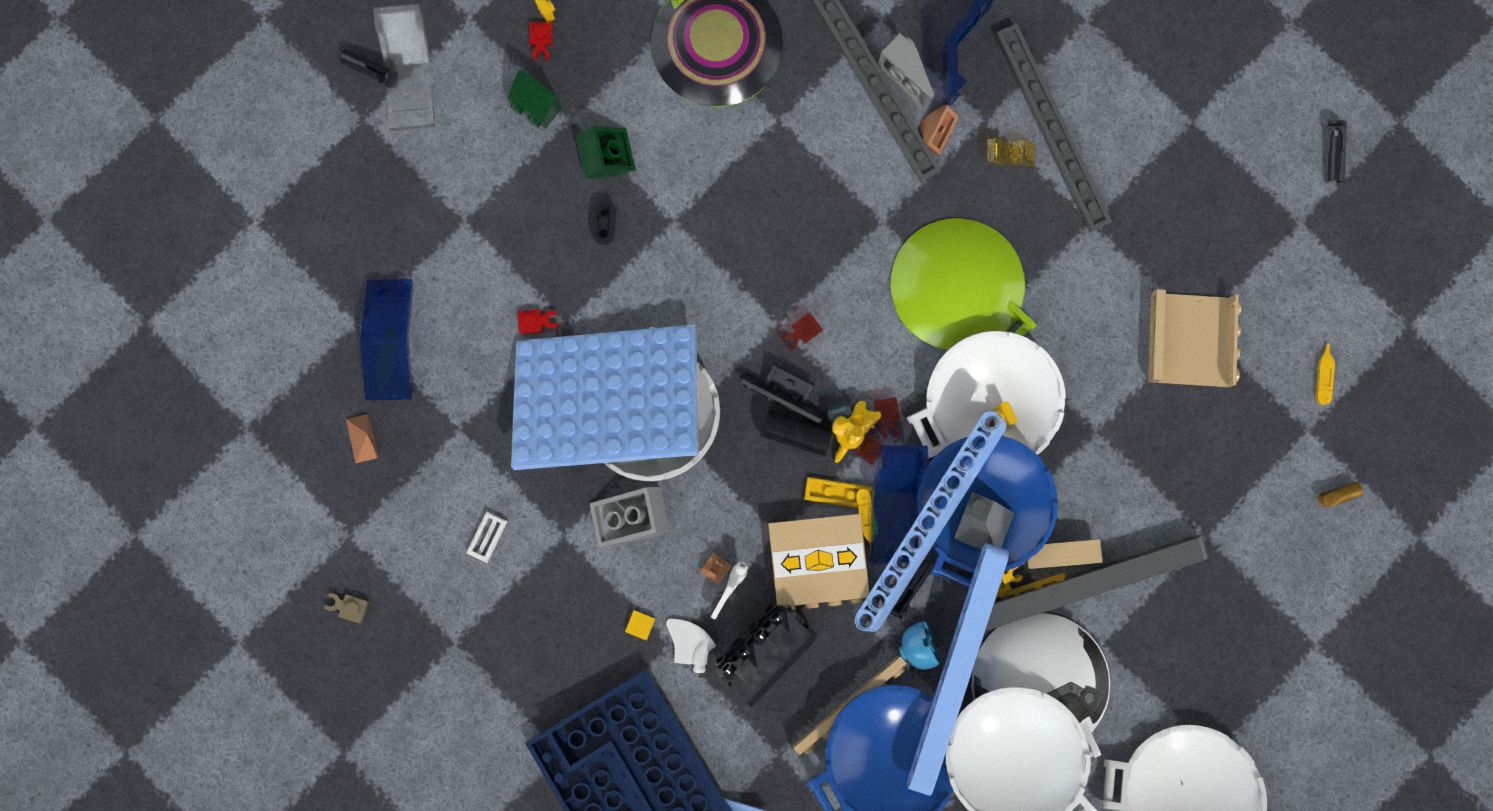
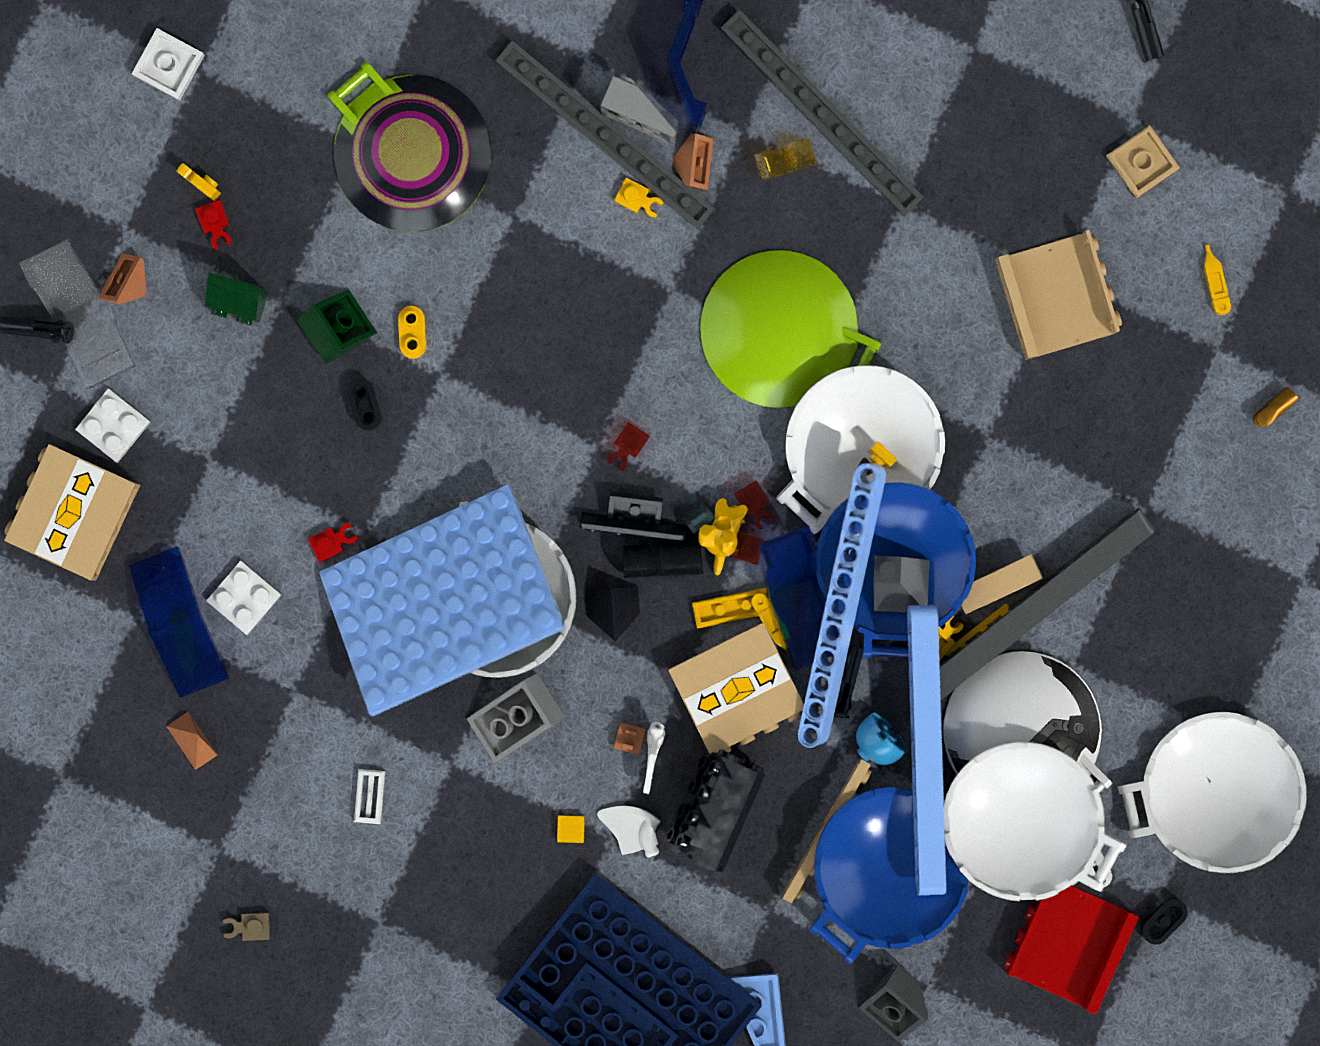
camera: 20 degrees left, 5 degrees up
(338, 221) = (71, 512): none -> tan panel
(398, 166) = (113, 425): none -> white plate
(448, 339) = (244, 597): none -> white plate
(453, 58) = (126, 281): none -> nougat slope
(663, 179) = (414, 331): none -> yellow plate
(741, 457) = (613, 609): none -> black slope
(880, 138) = (634, 196): none -> yellow plate
(1298, 258) = (1142, 161): none -> tan tile

